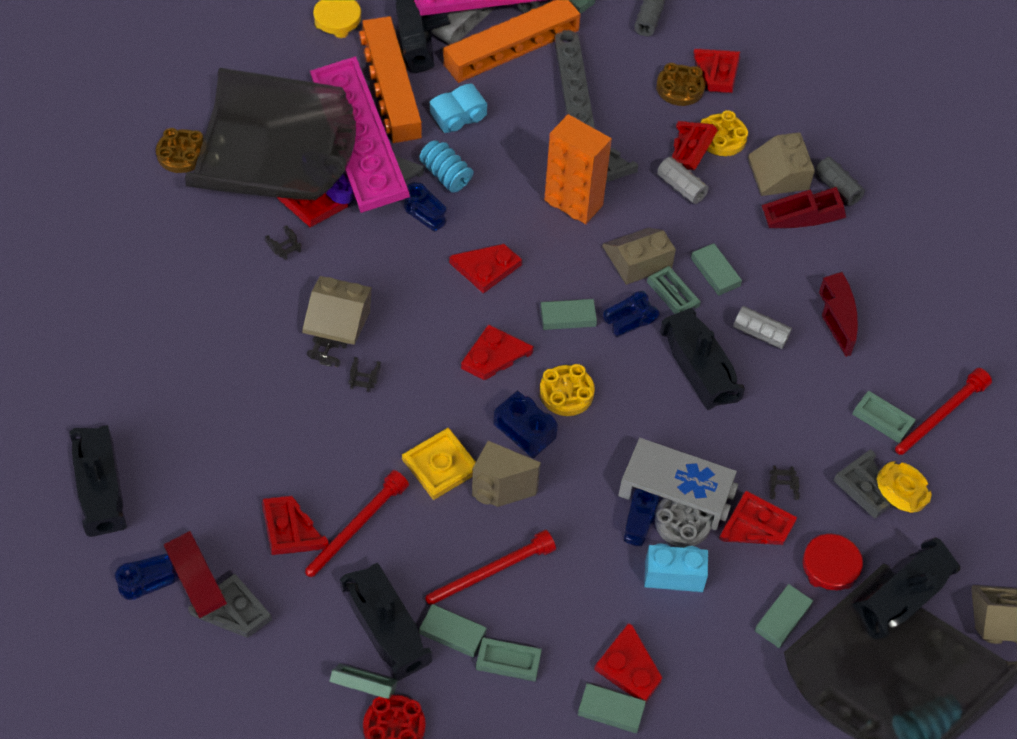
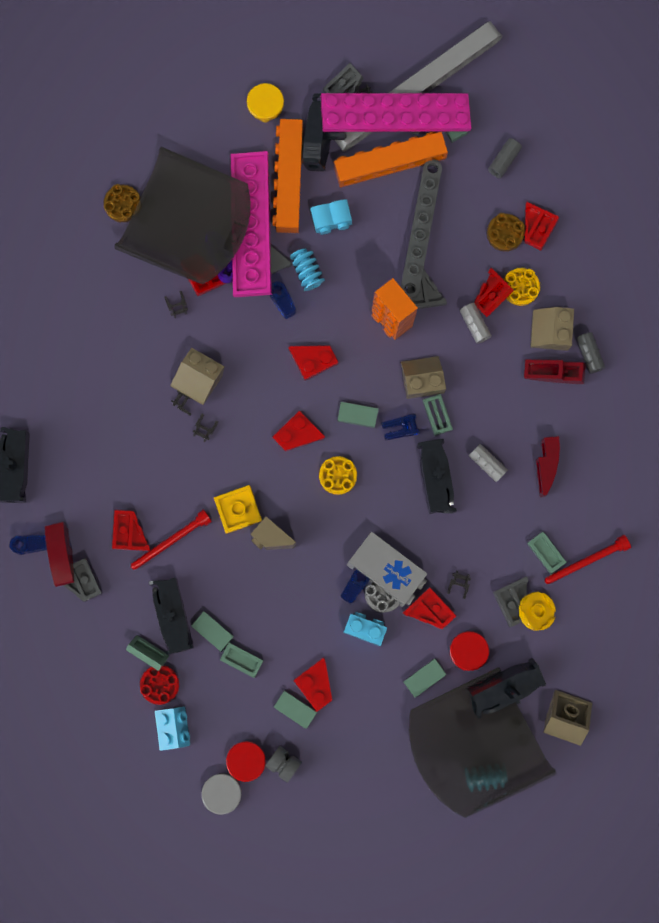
camera: 15 degrees right, 25 degrees up
(520, 427) = (297, 498): clear blue brick -> none
(541, 544) = (283, 588): red piece -> none
(716, 269) = (474, 404): sand green tile -> none

